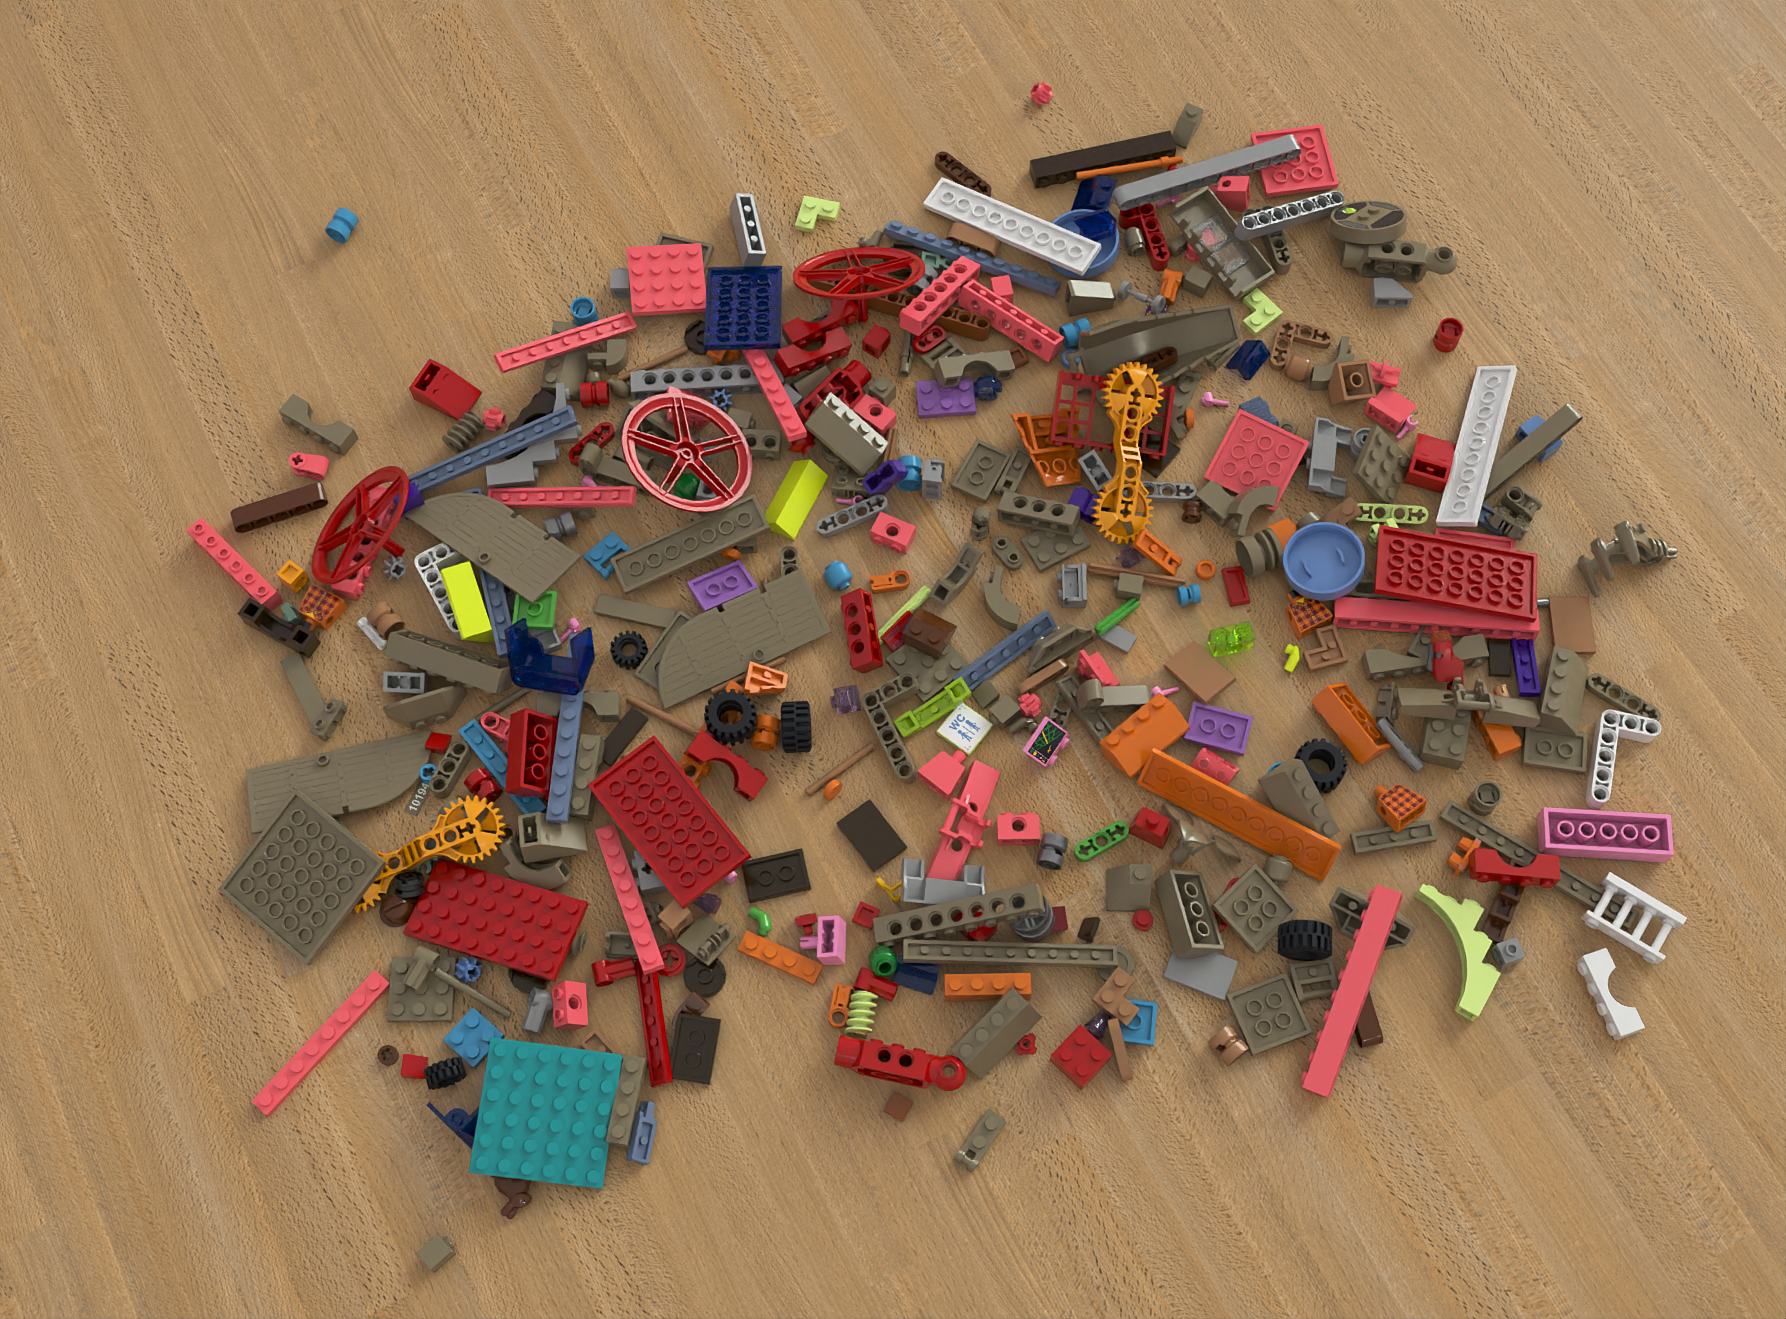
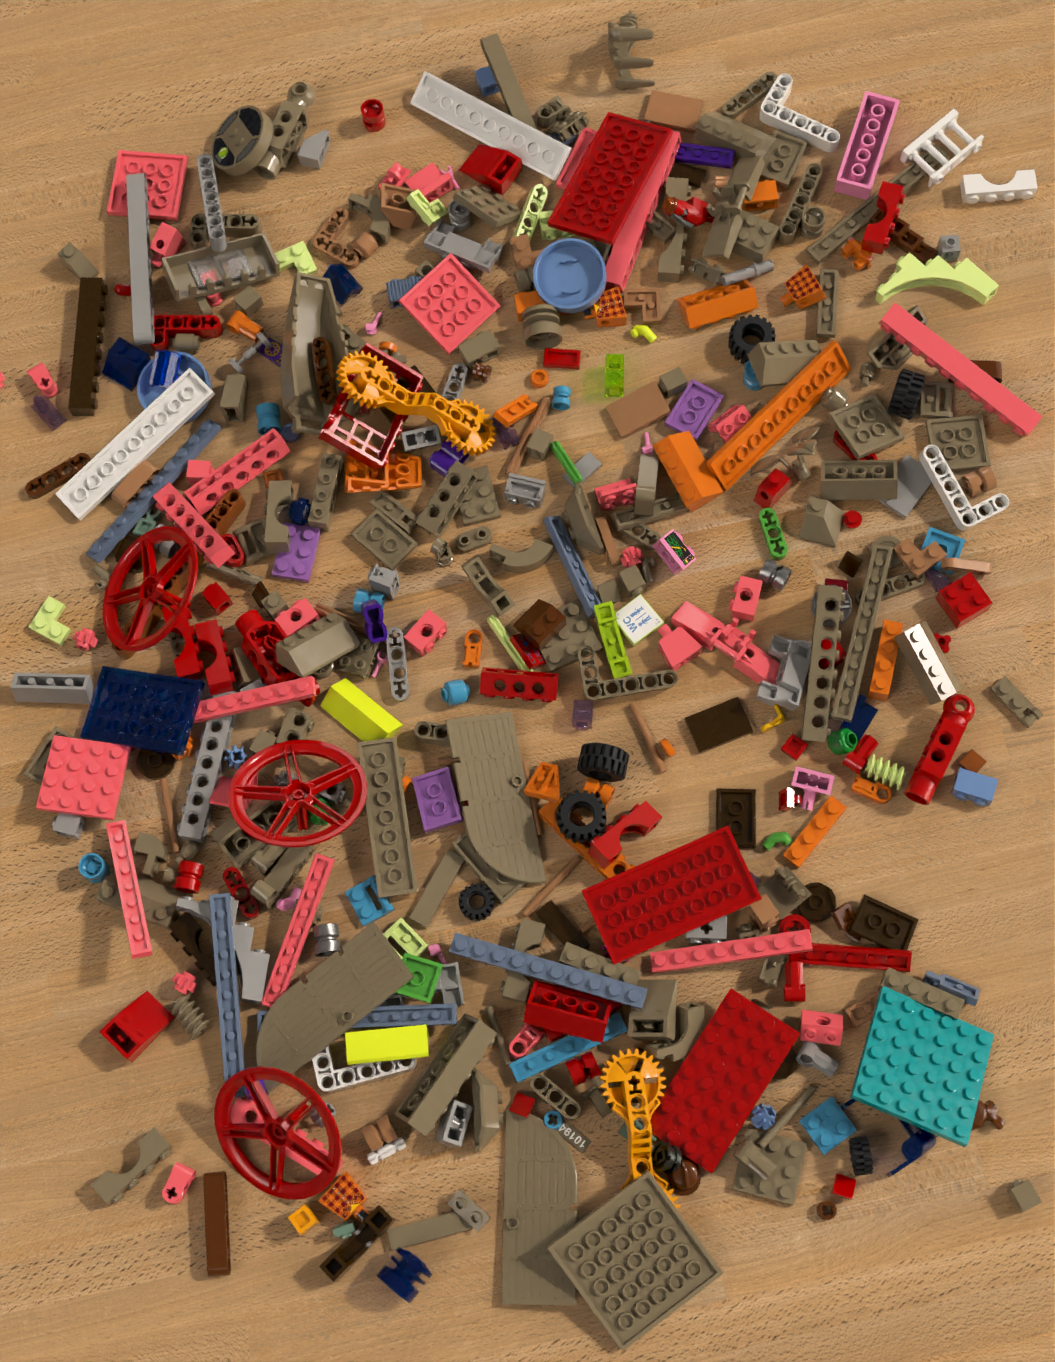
camera: 70 degrees left, 5 degrees up
(234, 564) = (270, 1281): coral brick -> none
(255, 674) = (404, 1274): none -> clear blue wheel
(321, 1043) = (800, 1273): coral plate -> none
(548, 672) = (487, 975): clear blue windscreen -> none
(578, 596) = (406, 938): none -> yellowish green plate
(803, 243) = (85, 639): none -> coral gear
(868, 1112) = (974, 787): none -> medium blue brick
(895, 377) = (260, 593): none -> dark brown slope
(1003, 404) = (326, 492): none -> dark tan brick
(1024, 148) = (47, 412): none -> hinge
(1055, 134) = (43, 380): none -> coral piece
(1071, 979) = (892, 591): none -> dark tan beam
(1162, 162) = (110, 294): orange bar -> none
(1203, 1021) = (956, 492): none -> white beam
(1242, 698) = (672, 382): none -> dark tan brick
(1245, 503) = (494, 324): dark tan arch -> none
(1321, 898) = (866, 373): none -> dark tan cylinder
(1352, 409) = (428, 211): none -> yellowish green plate
(1514, 777) = (801, 196): none -> dark tan beam

